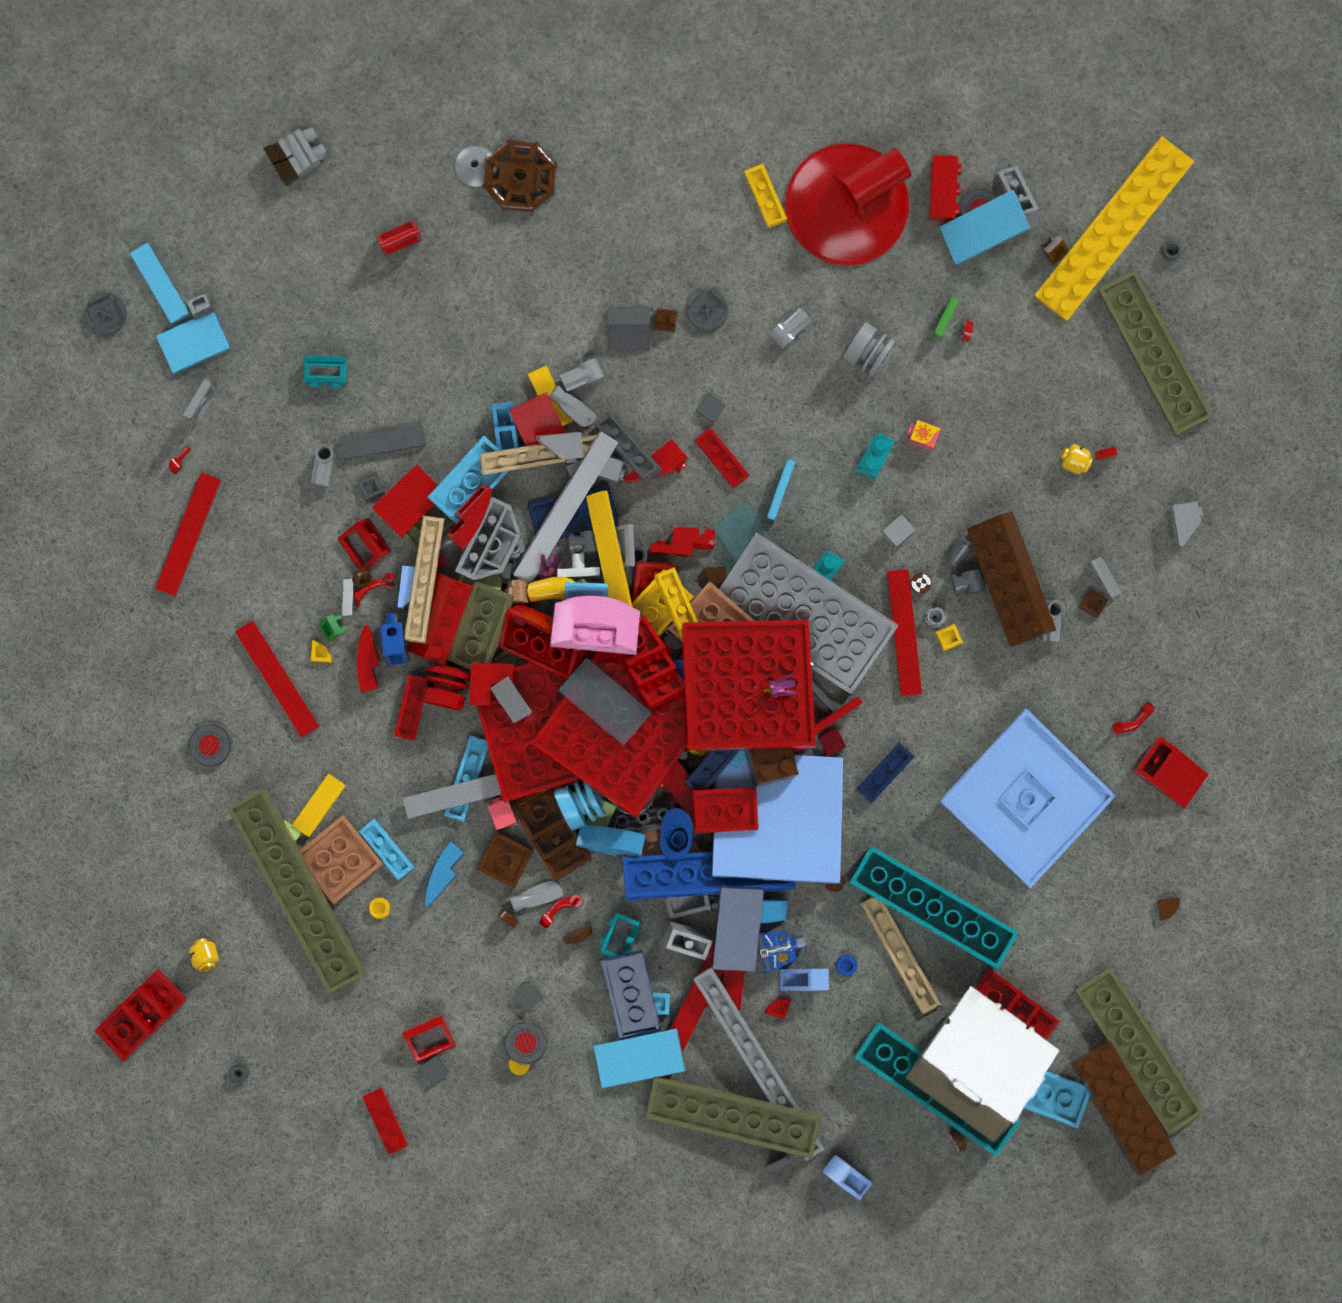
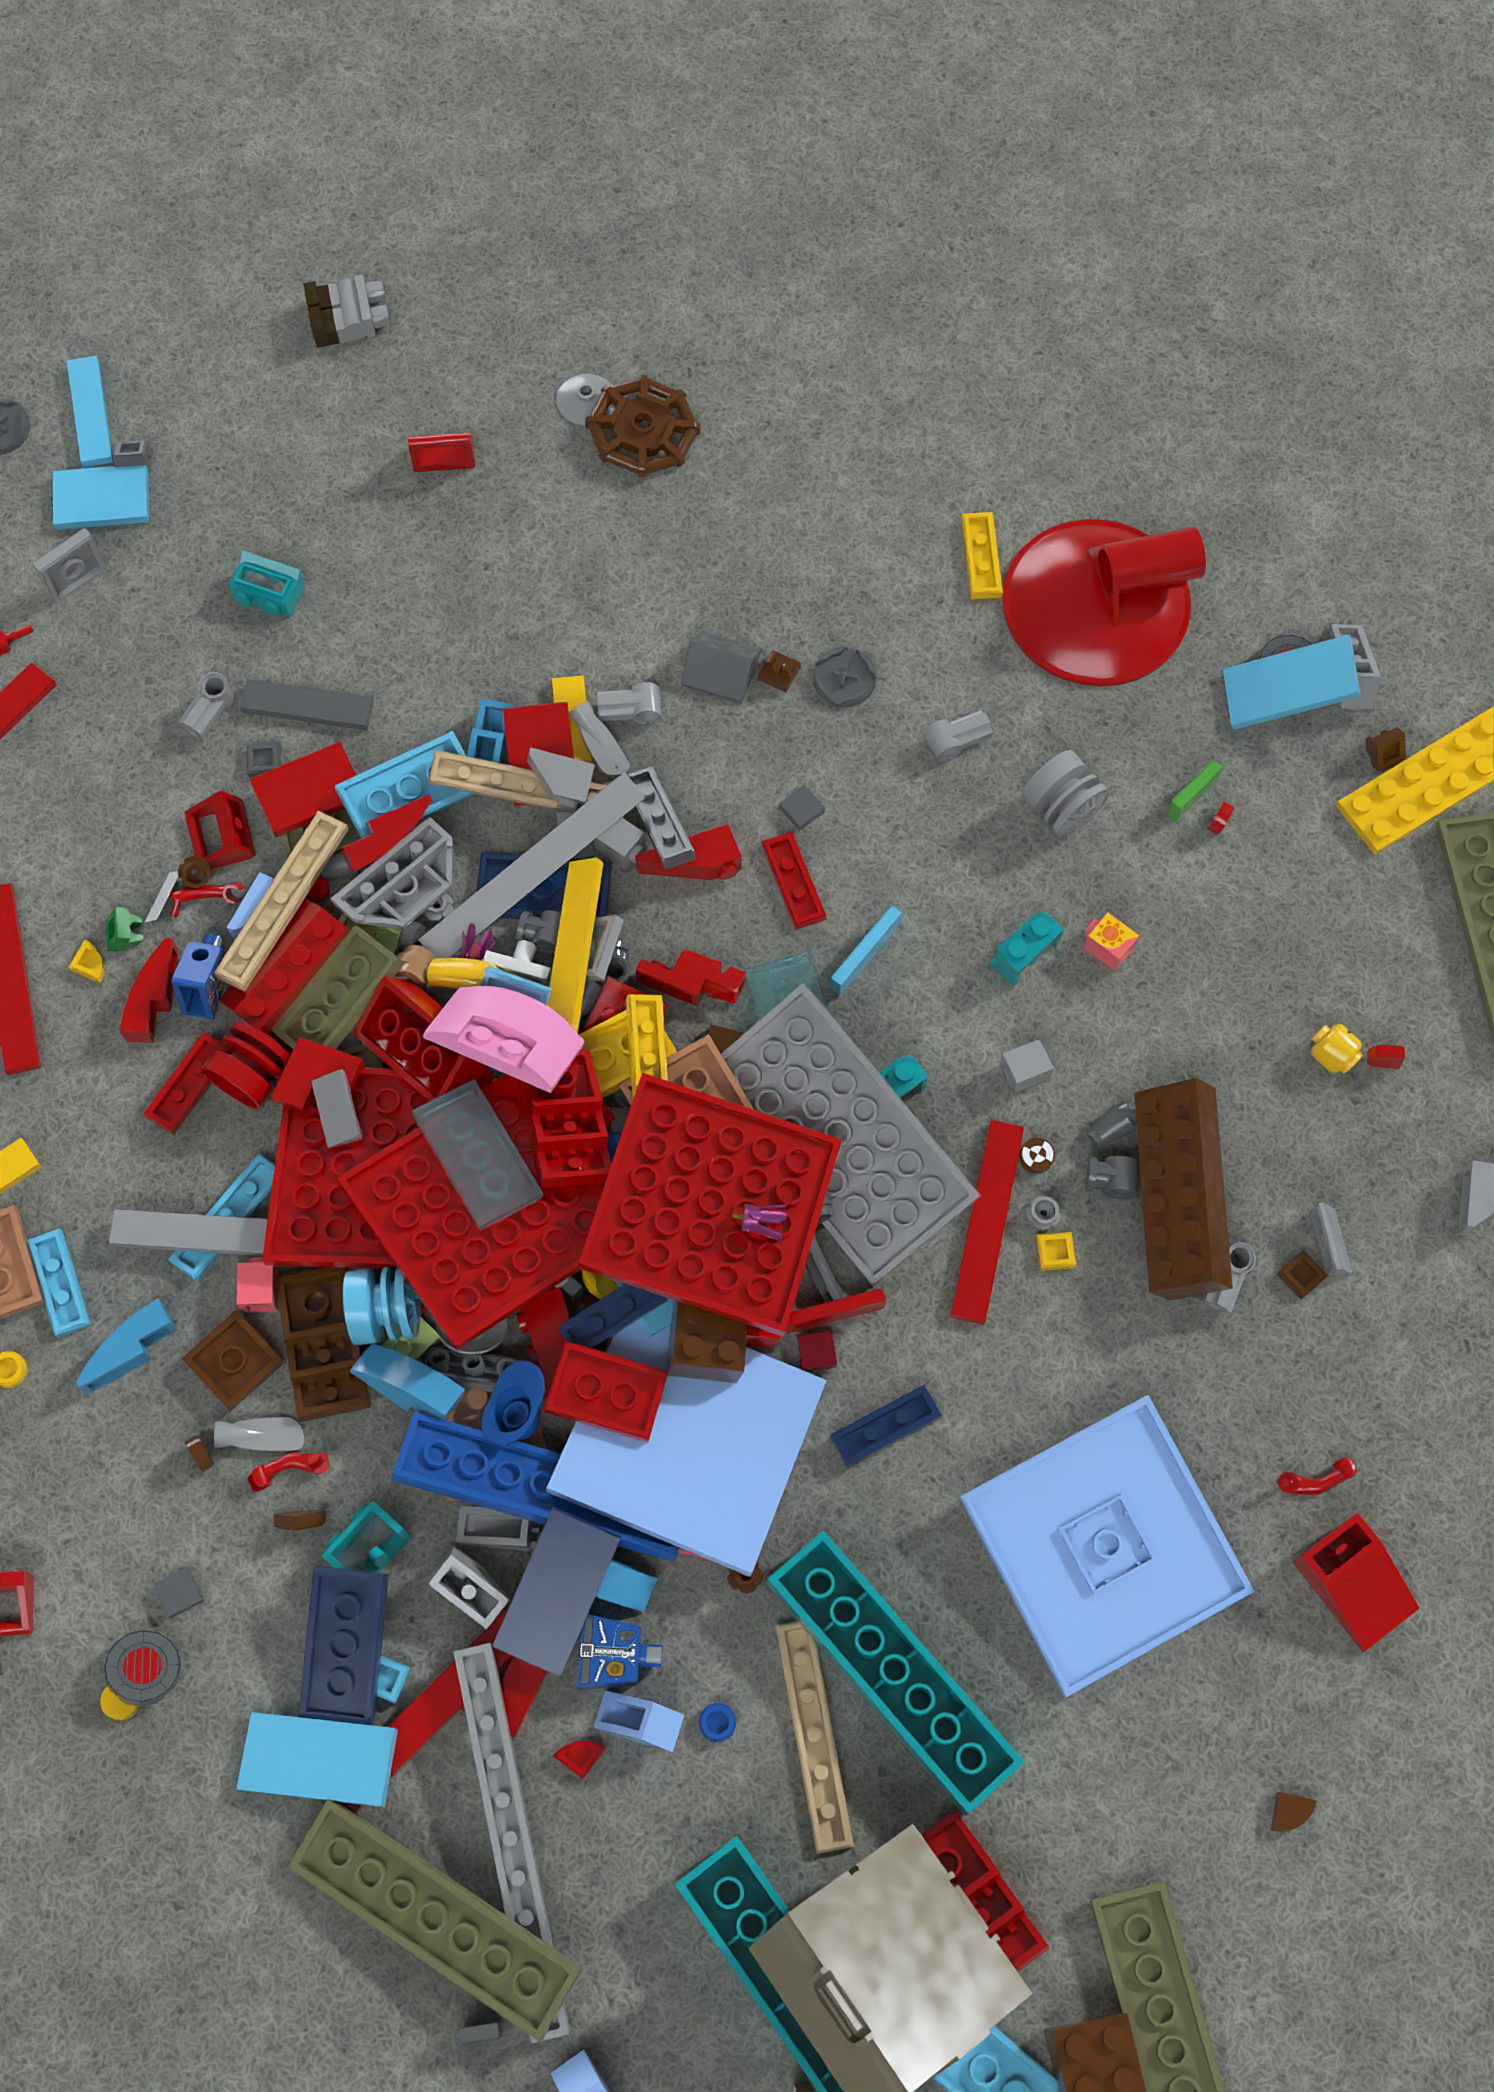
camera: 15 degrees right, 15 degrees down
(944, 188) = (1246, 618): red brick -> none

